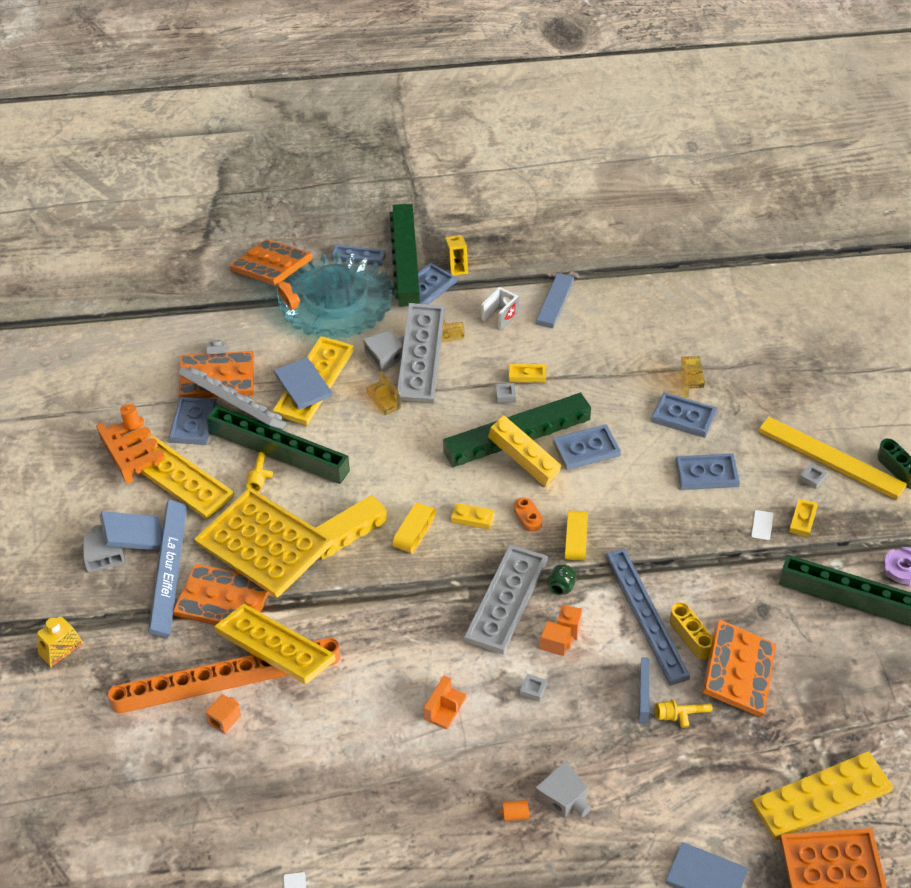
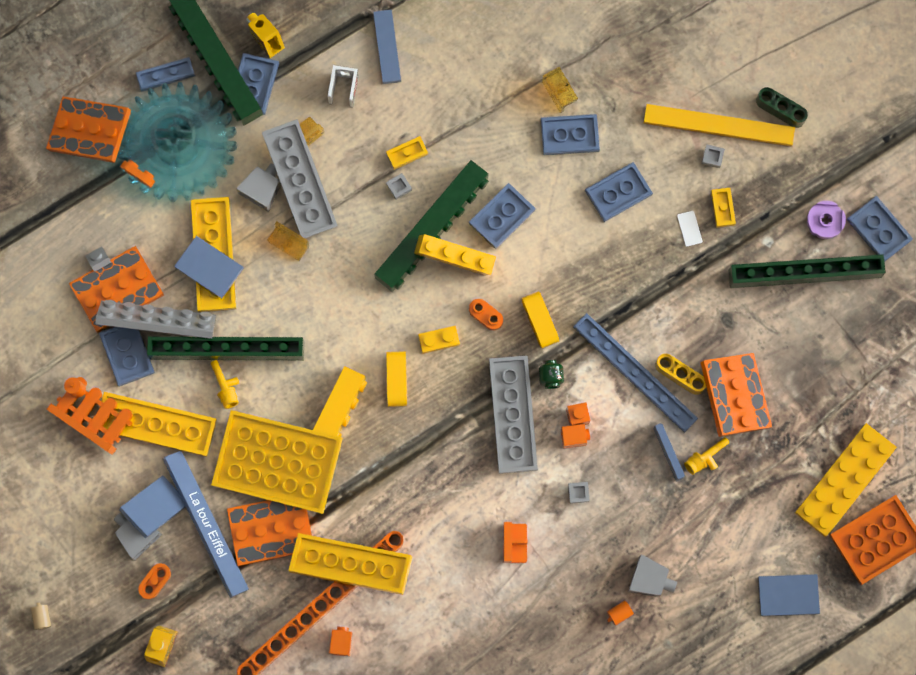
camera: 30 degrees left, 30 degrees up
(91, 592) = (152, 579): none -> orange plate

